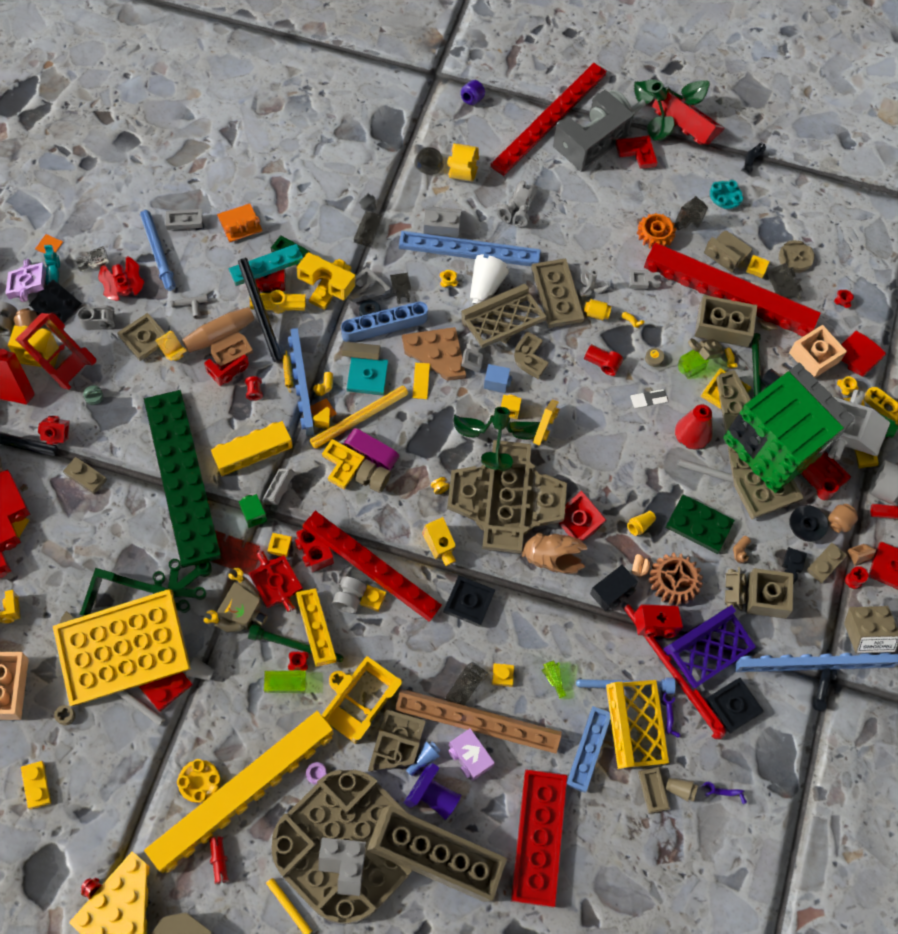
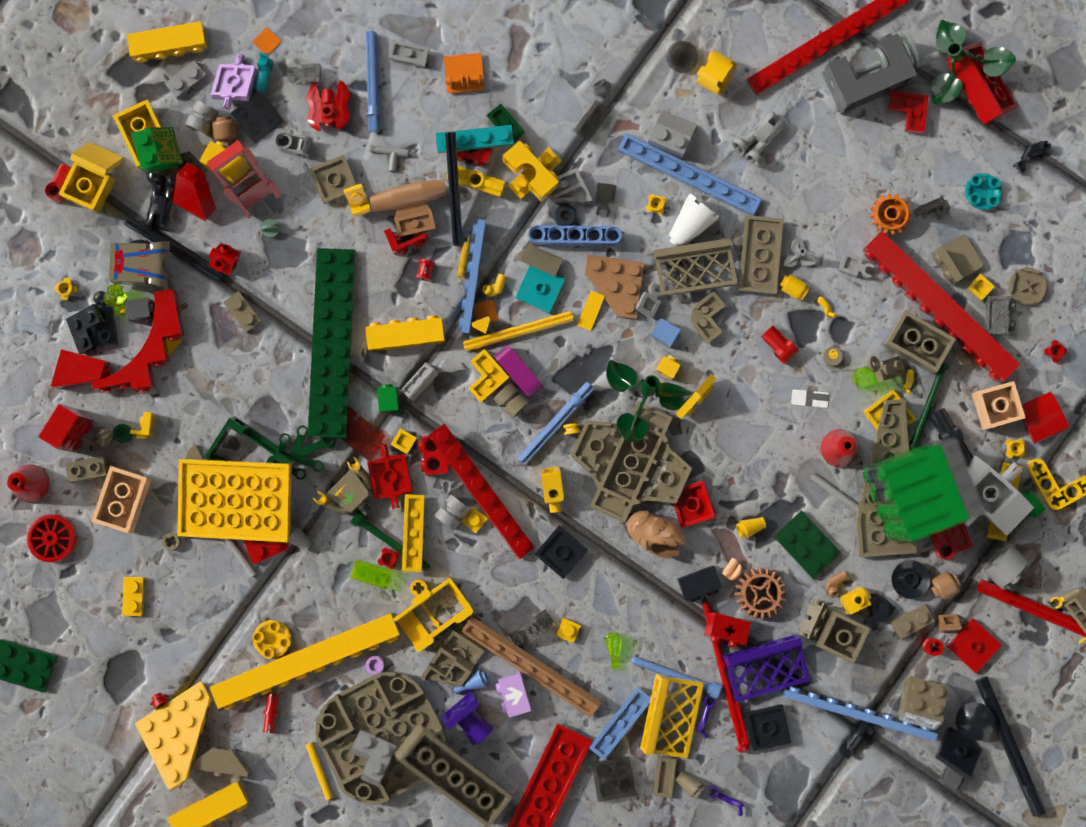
camera: 25 degrees right, 20 degrees up
(422, 486) = (556, 423): none -> medium blue axle
(607, 796) = (625, 786): none -> clear smoke plate
(766, 557) = (855, 600): none -> yellow brick

